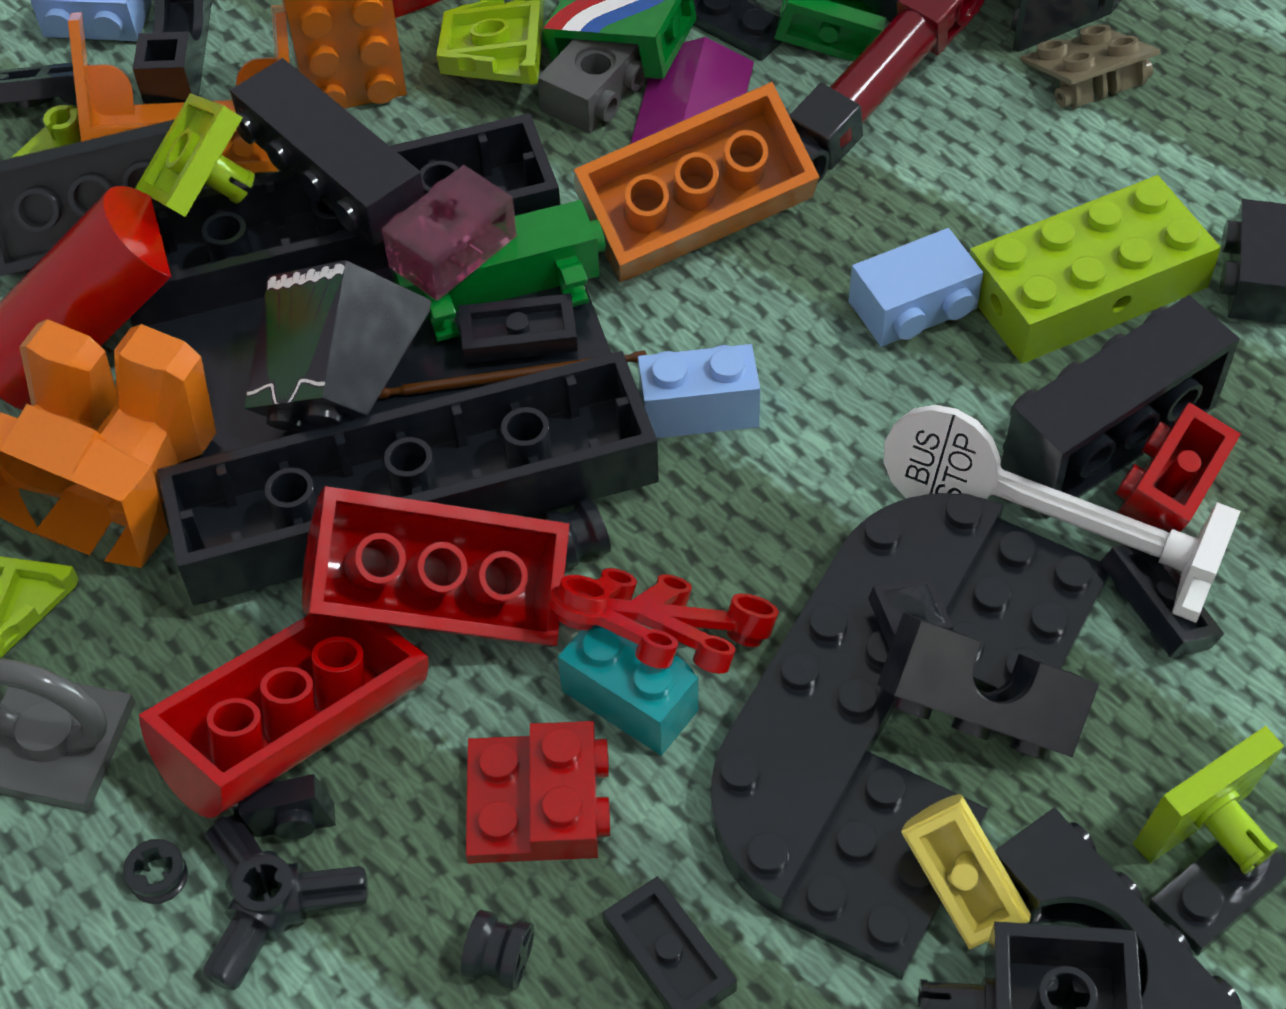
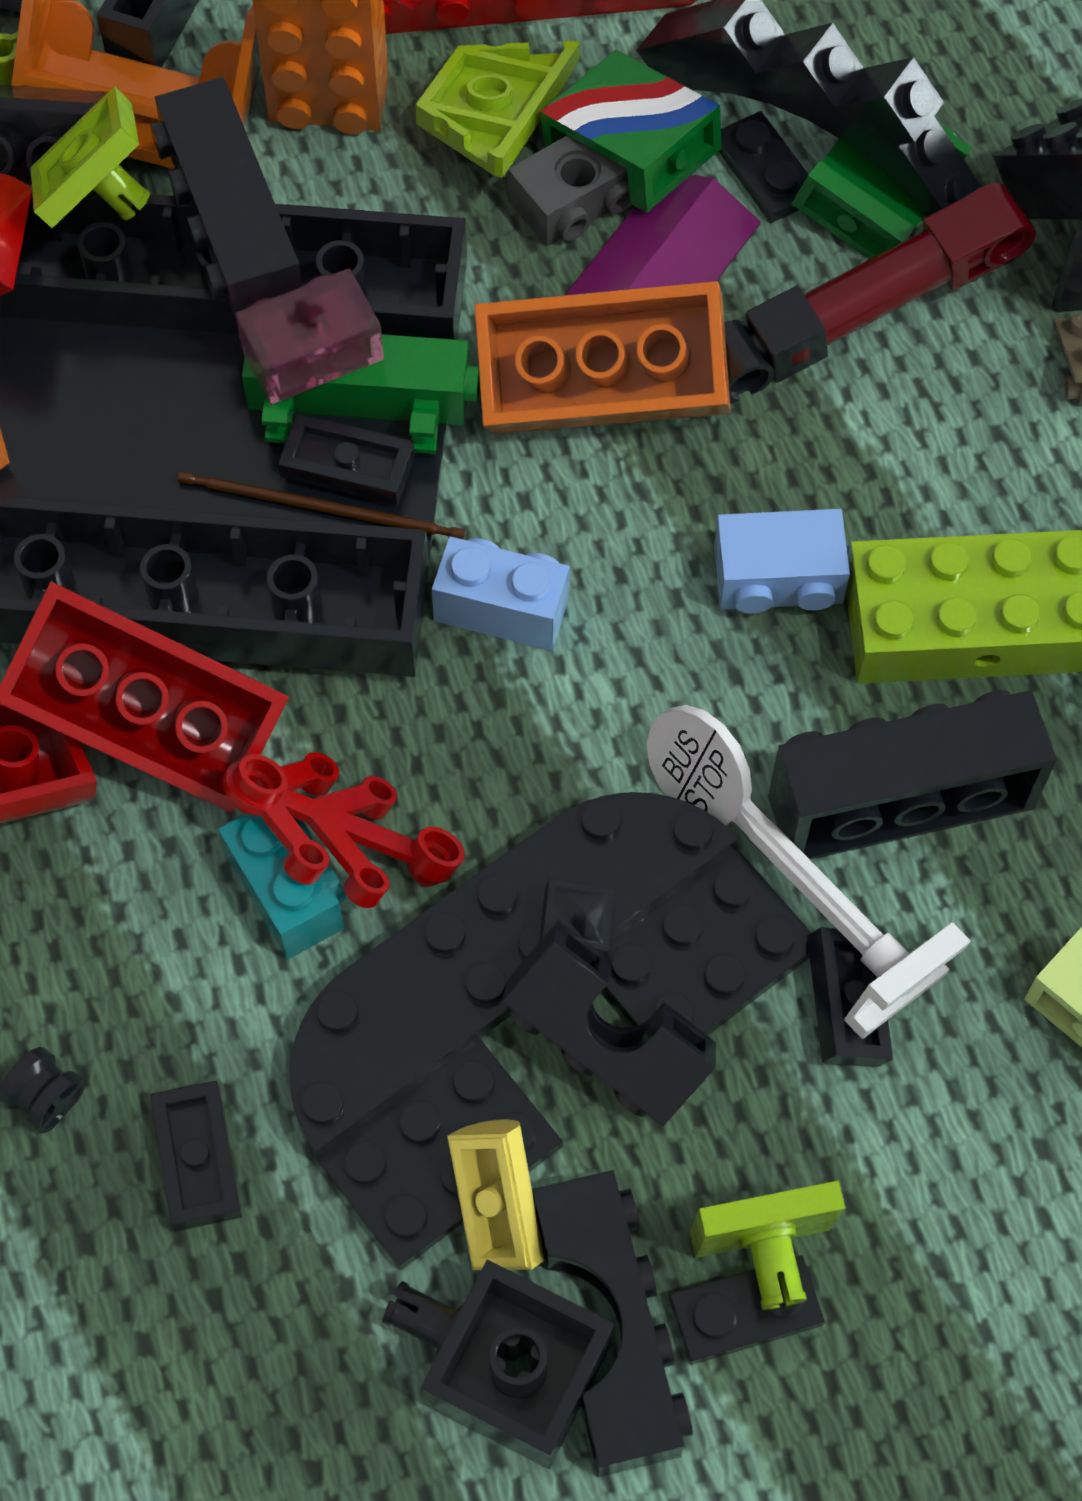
camera: 20 degrees right, 10 degrees up
(329, 343) = (141, 418): black slope -> none
(537, 795) = (149, 953): red plate -> none
(586, 531) = (310, 700): black wheel -> none
(1178, 471) = (931, 875): red brick -> none

